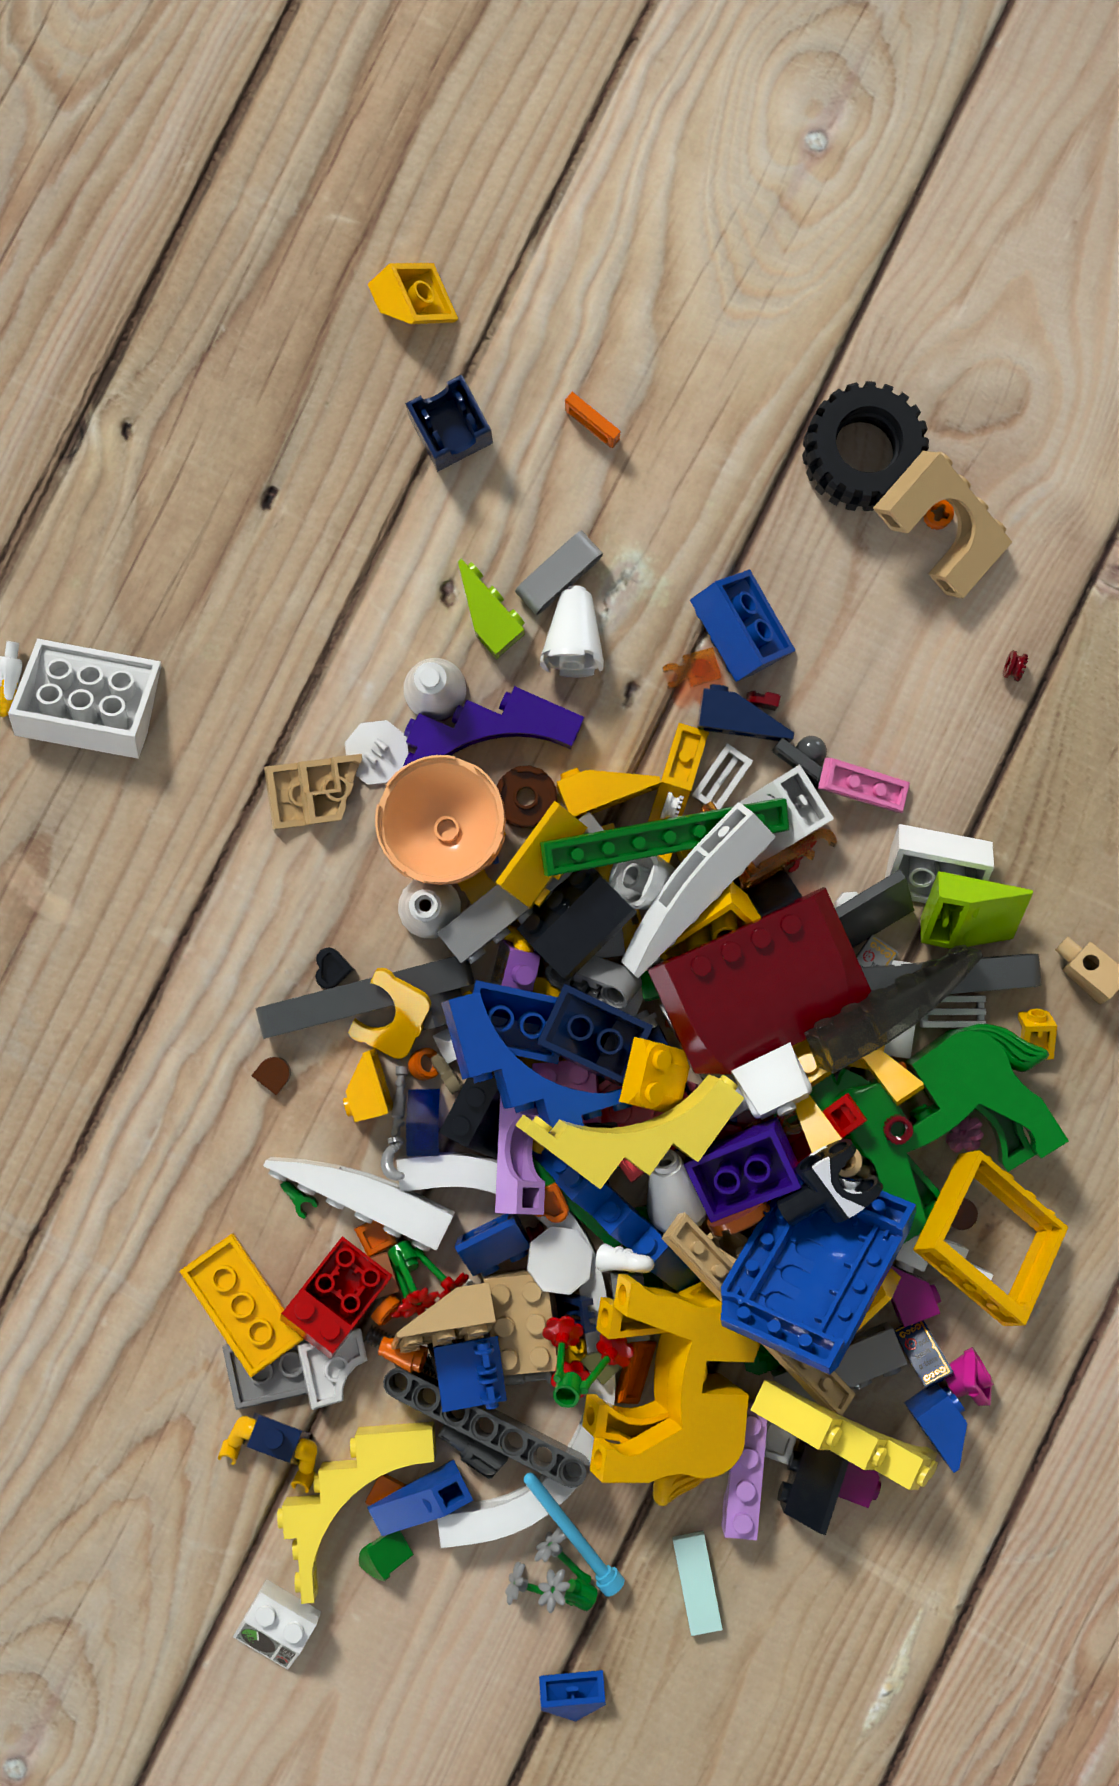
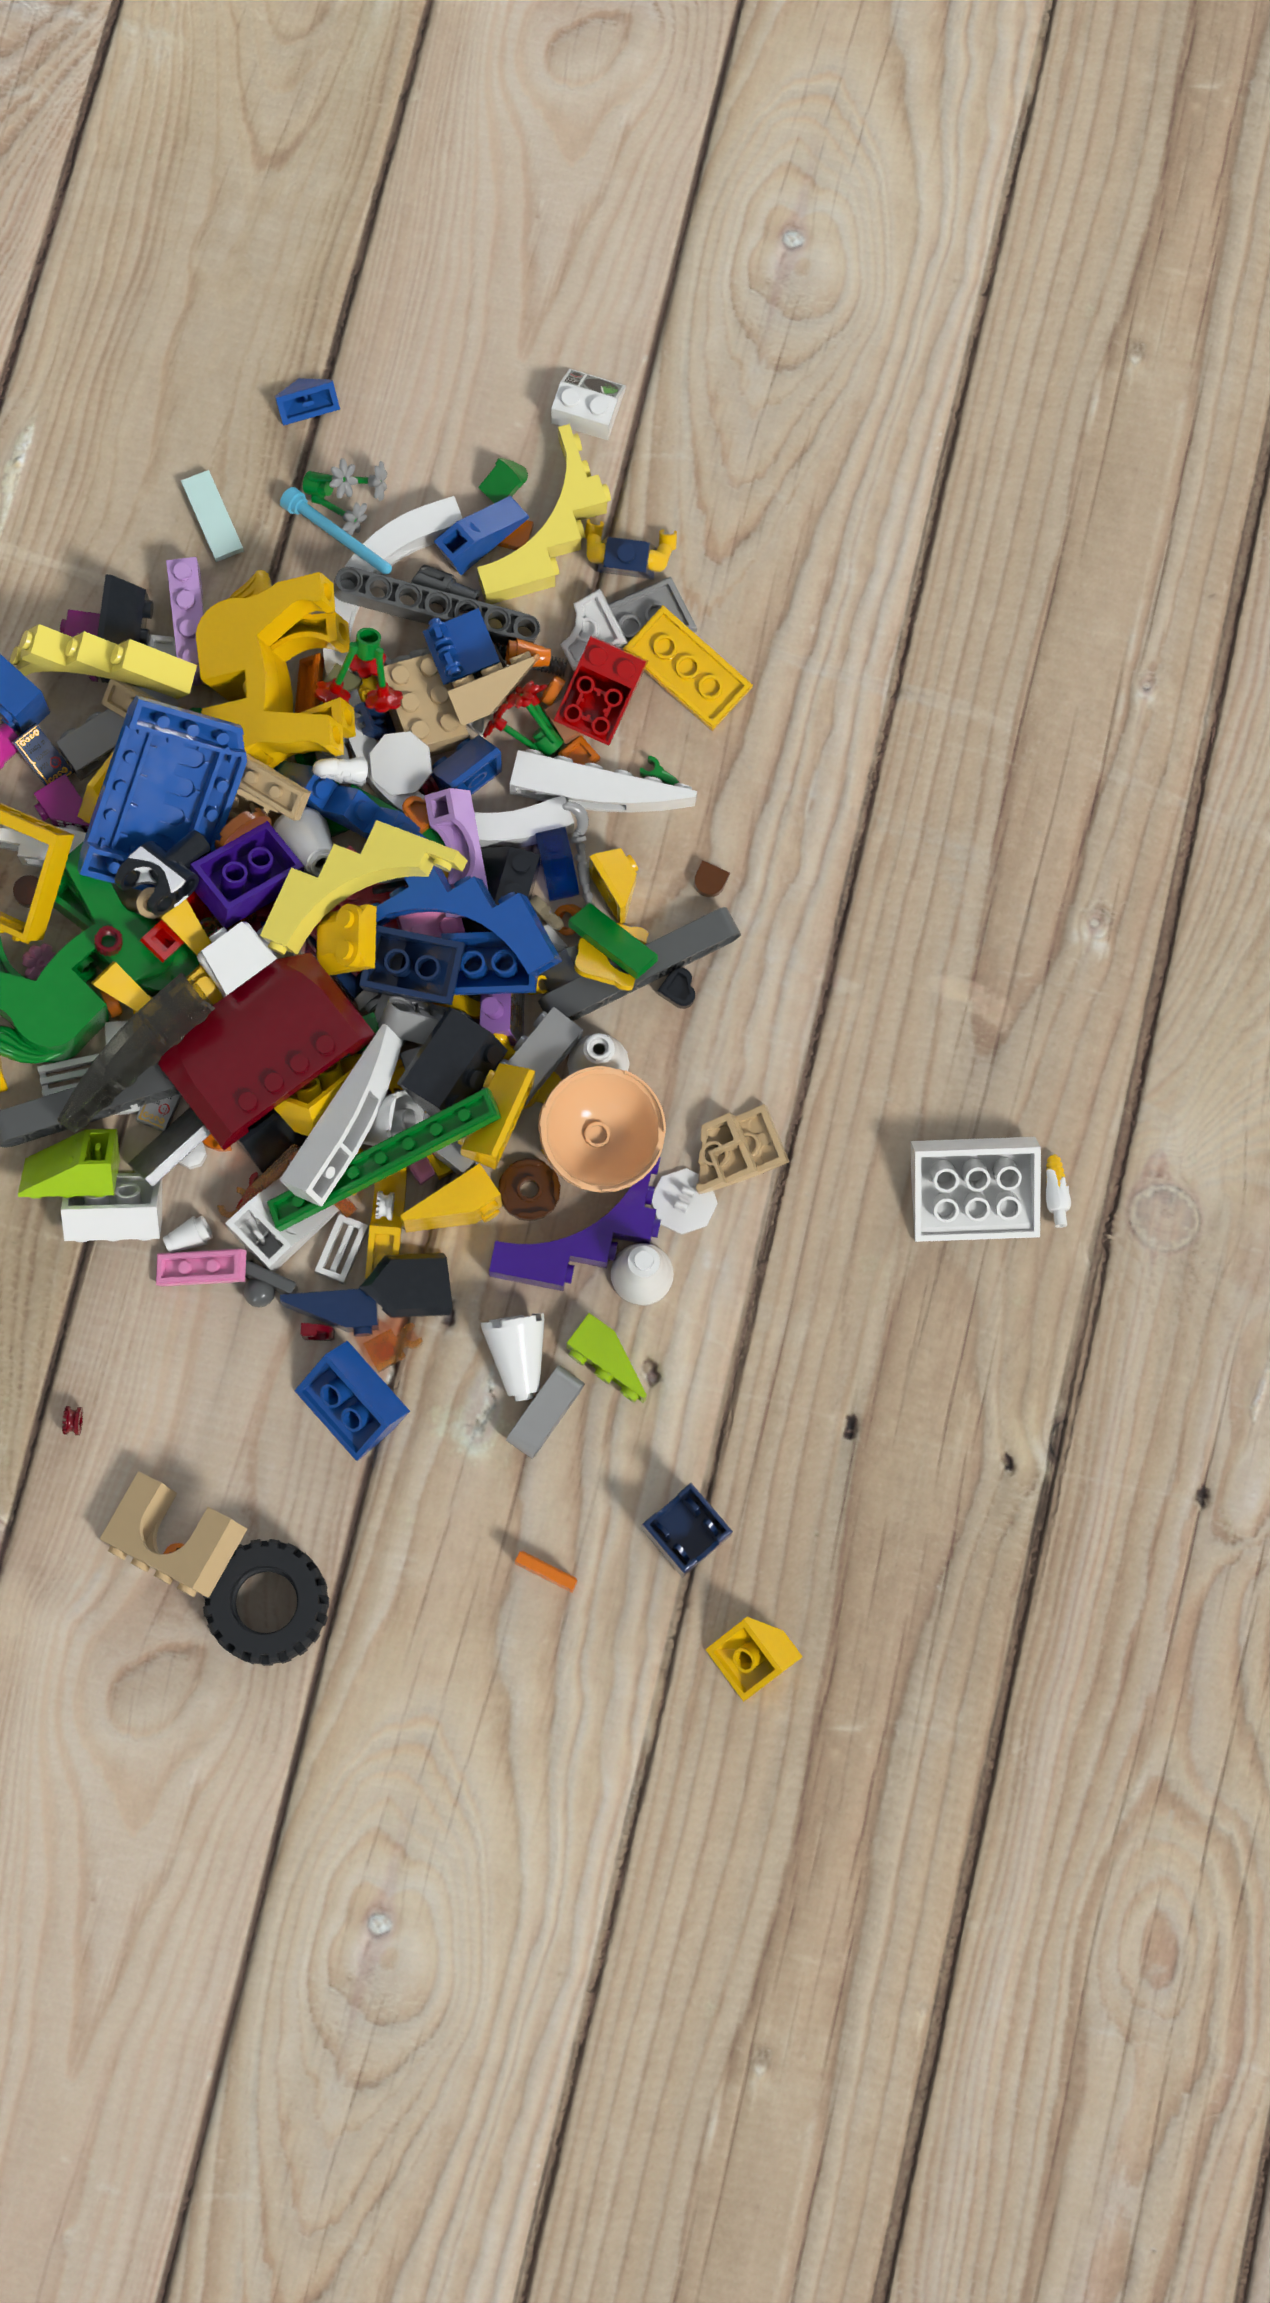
camera: 165 degrees right, 10 degrees down
(385, 1025) = (613, 940): none -> green tile
(662, 723) = (411, 1285): none -> black tile
(867, 823) = (190, 1234): none -> white cone

